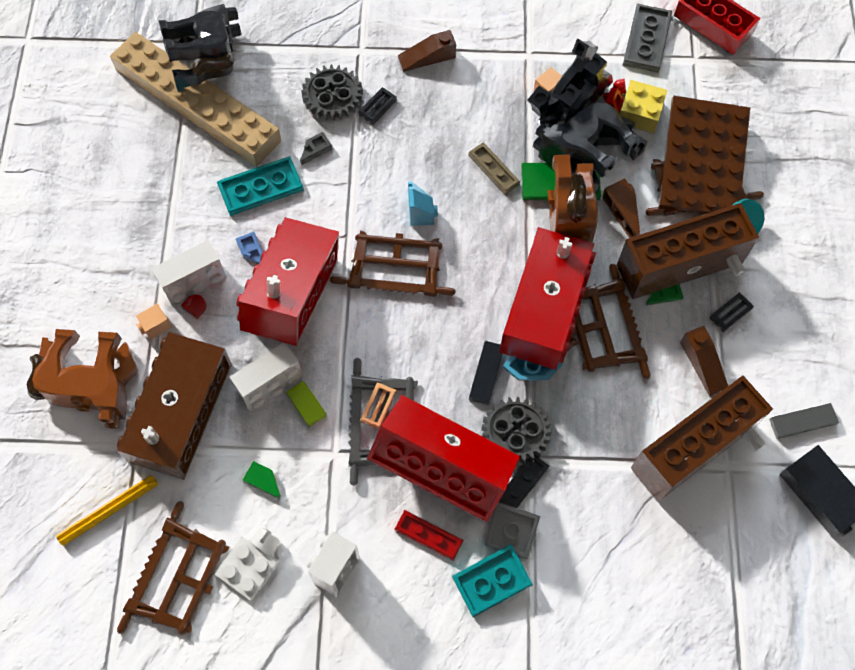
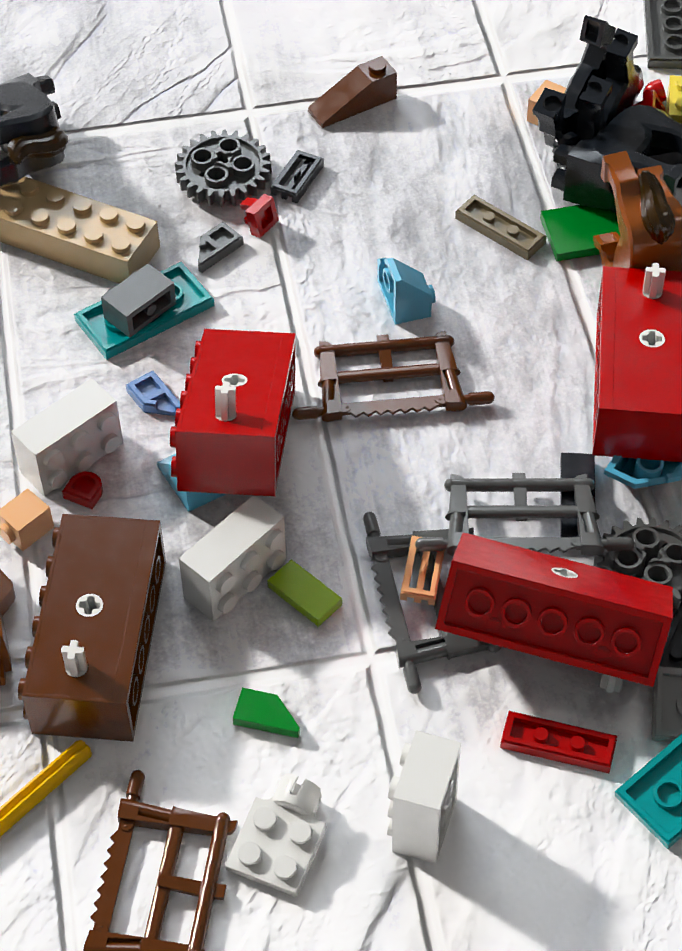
camera: 10 degrees left, 15 degrees down
(255, 182) = (138, 300): none -> brick
(346, 131) = (260, 214): none -> red tile
(480, 411) = (584, 510): none -> dark grey piece

